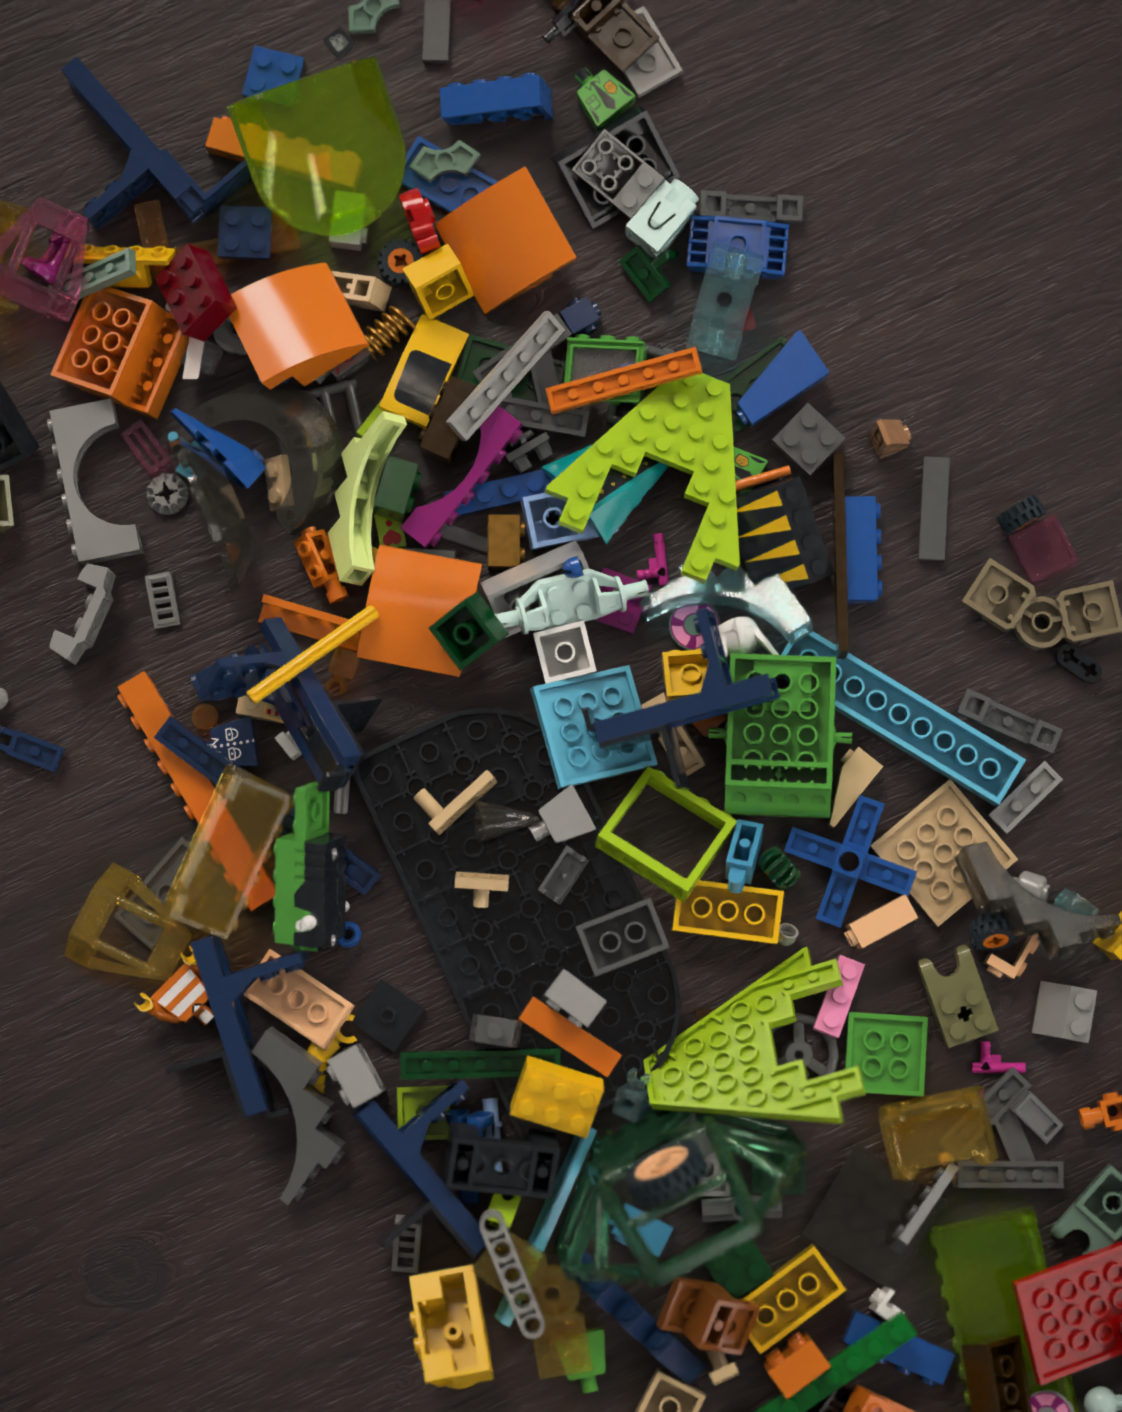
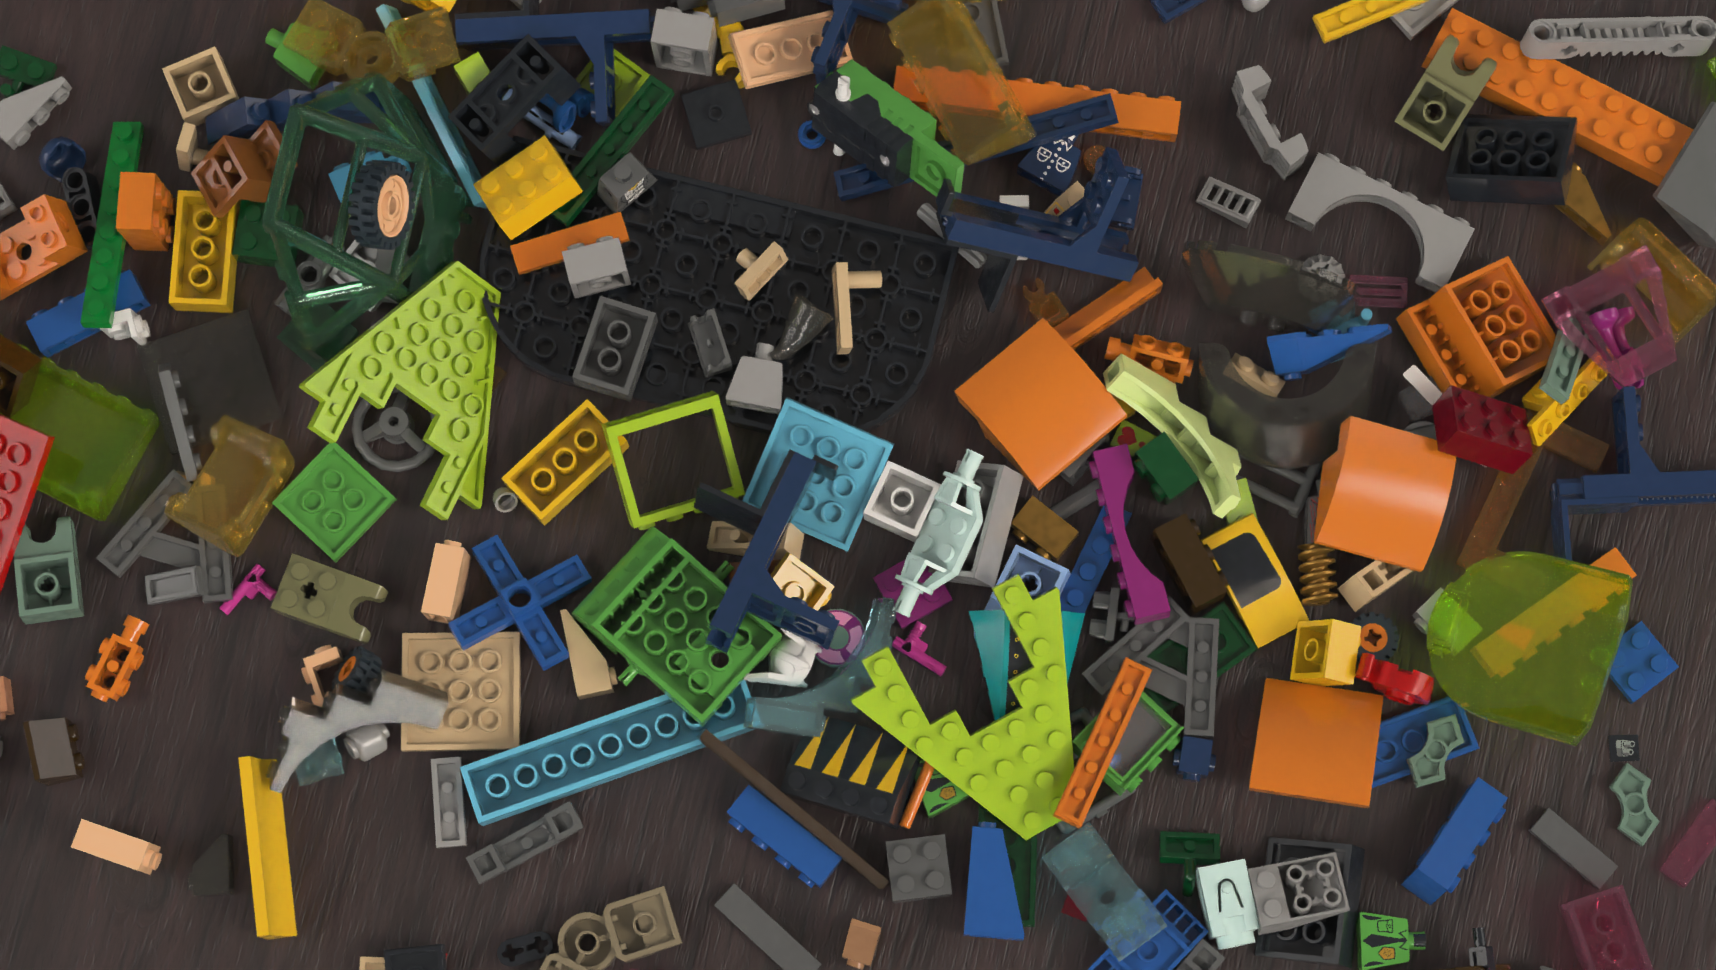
camera: 130 degrees right, 5 degrees down
(245, 233) = (1506, 520): dark blue plate -> none
(312, 654) = (1071, 273): yellow axle -> none
(468, 630) = (983, 420): dark green brick -> none
(505, 376) = (1189, 638): light grey plate -> none
(517, 1285) = (403, 24): light grey beam -> none
(573, 568) = (967, 557): blue hinge -> none
(632, 1097) = (476, 254): clear light blue brick -> none
(743, 854) = (601, 511): dark azure brick -> none
(779, 868) = (565, 535): dark green gear -> none
(838, 1000) = (410, 492): bright pink plate -> none
(1064, 1011) = (239, 682): light grey slope -> none

